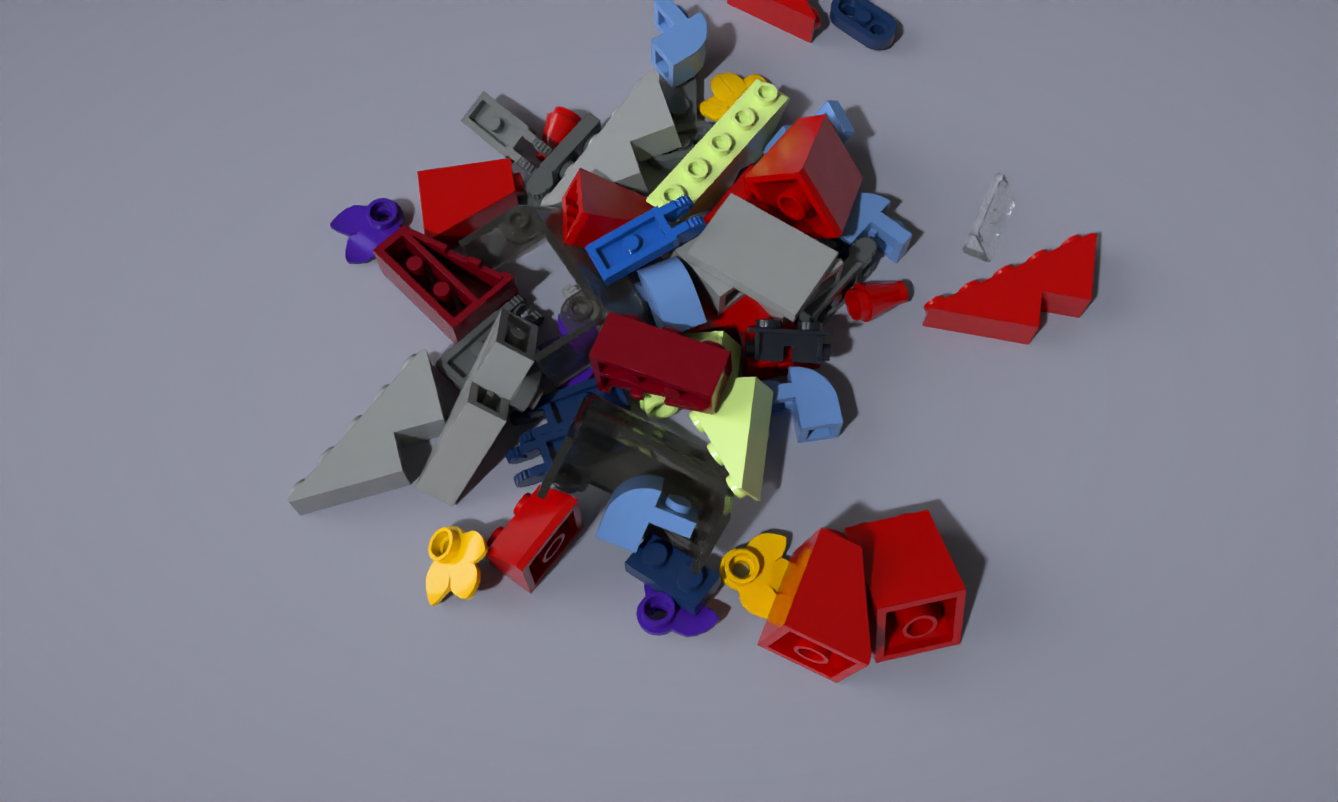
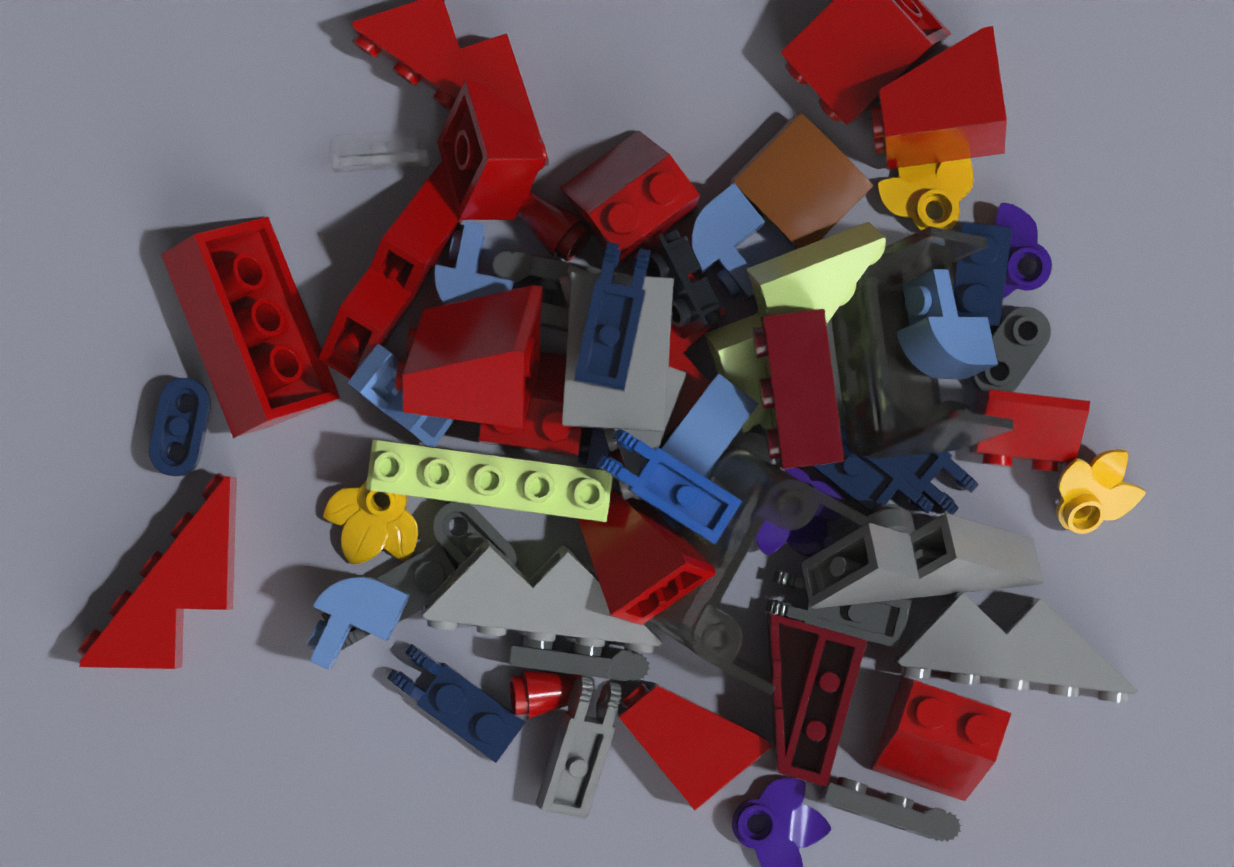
camera: 125 degrees left, 20 degrees up
(329, 298) = (892, 811): none -> dark grey hinge
(359, 353) = (939, 739): none -> red slope
(586, 86) = (461, 706): none -> dark blue hinge
(597, 565) = (1013, 351): none -> dark grey plate
(788, 253) = (612, 324): none -> dark blue hinge
(816, 479) = (801, 182): none -> dark orange slope
(867, 347) = (631, 195): none -> red slope
(909, 185) = (394, 277): none -> red slope
(911, 87) = (249, 325): none -> red slope
(950, 266) = (489, 154): none -> red slope

